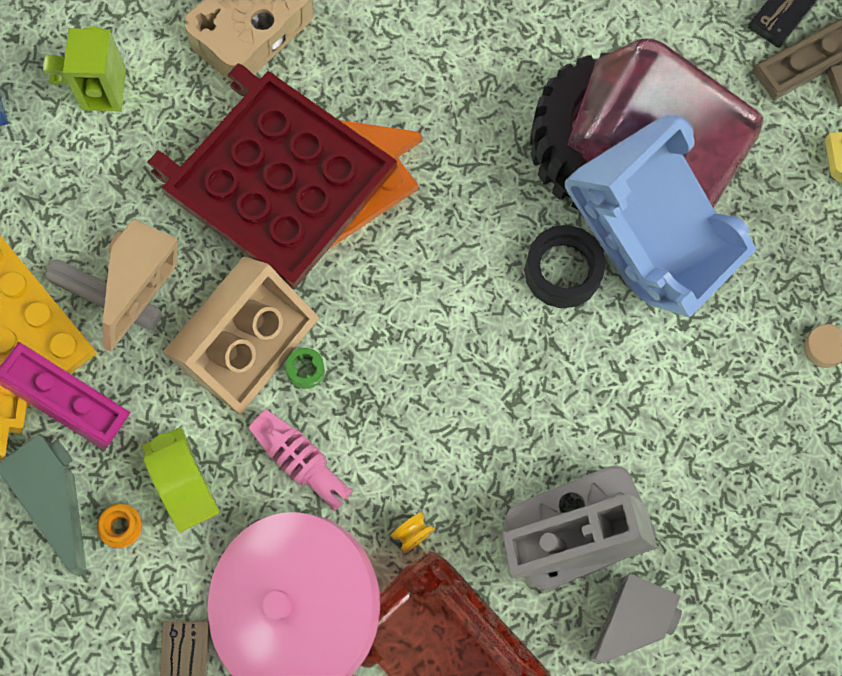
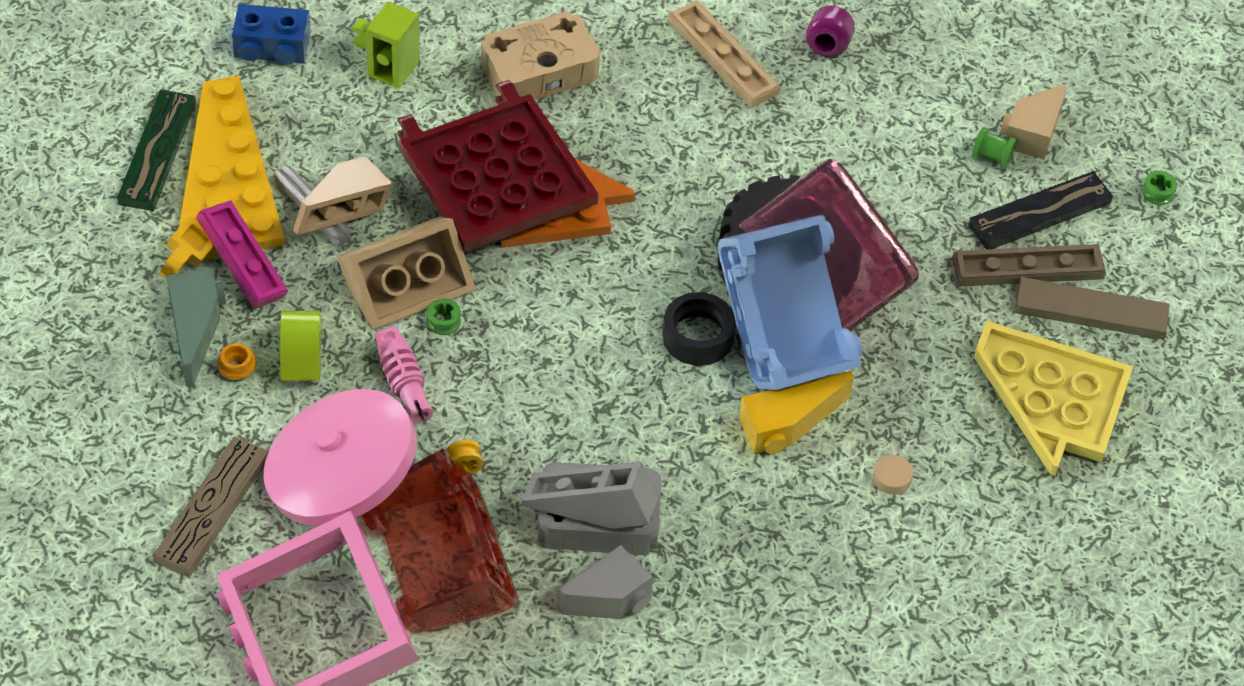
camera: 25 degrees right, 20 degrees down
(691, 342) = (784, 415): none -> yellow slope

